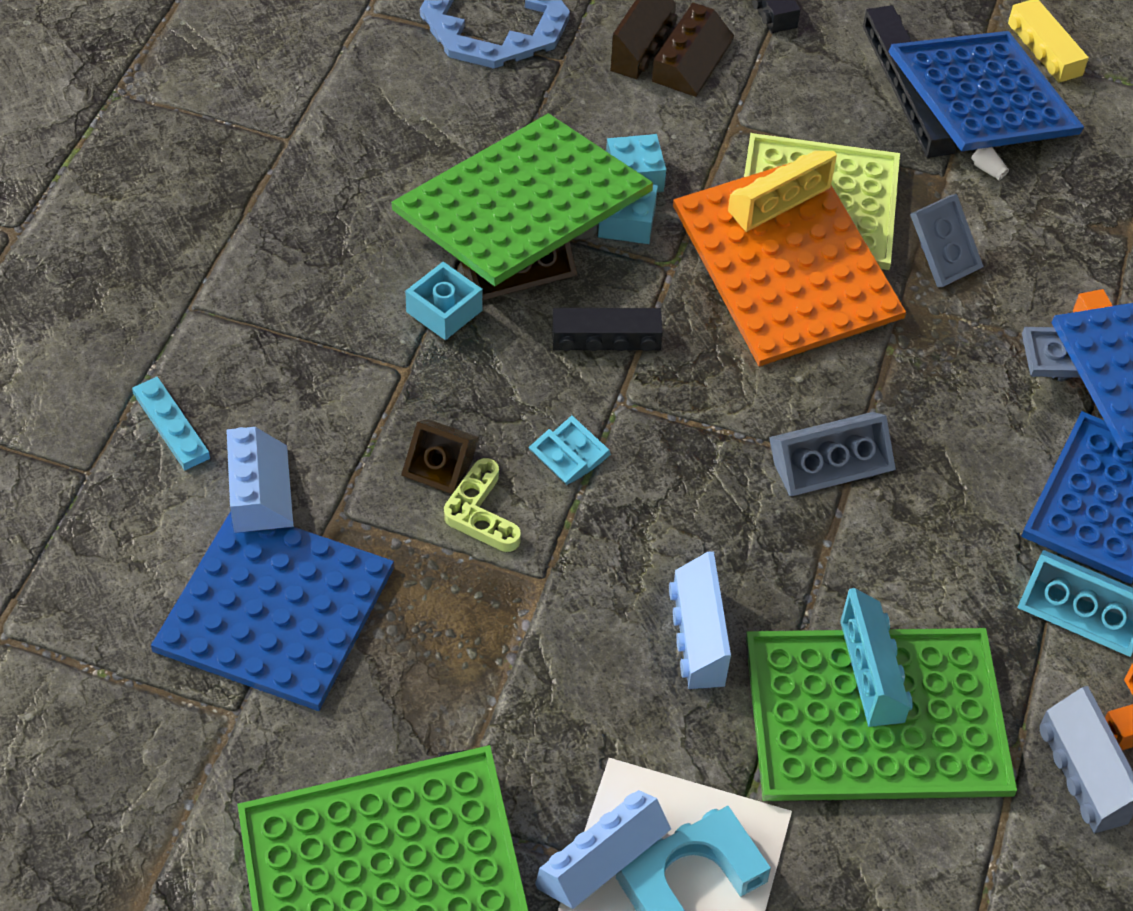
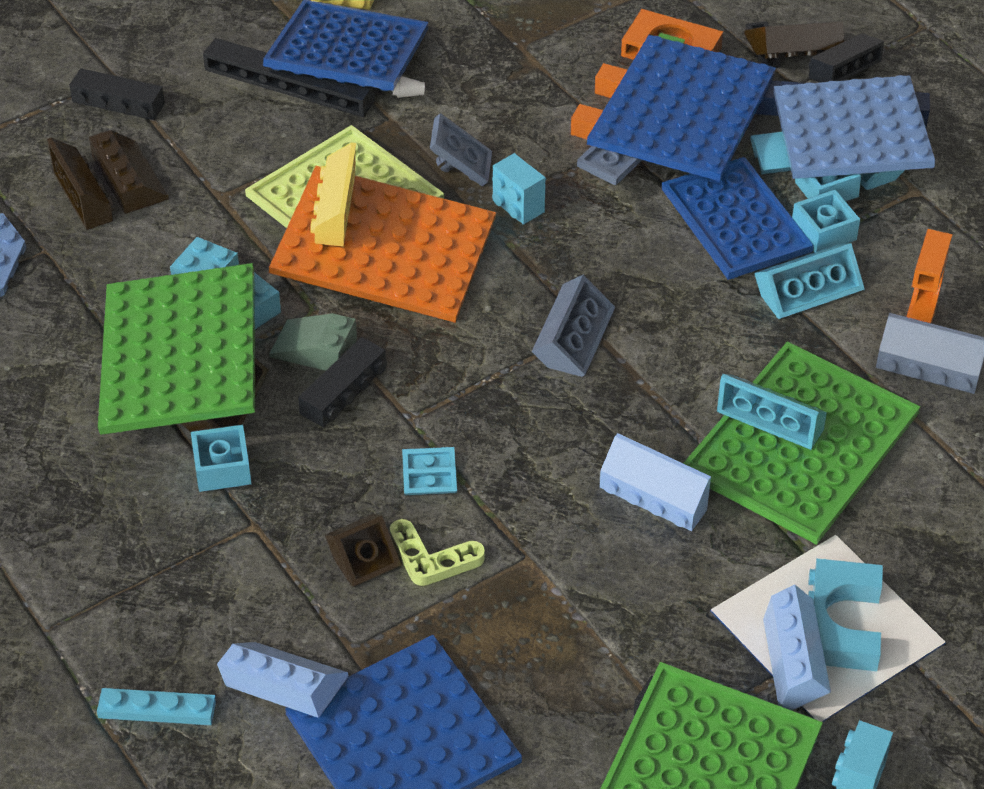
camera: 50 degrees left, 5 degrees down
(635, 283) = (315, 340): none -> sand green slope
(946, 309) = (518, 188): none -> medium azure brick

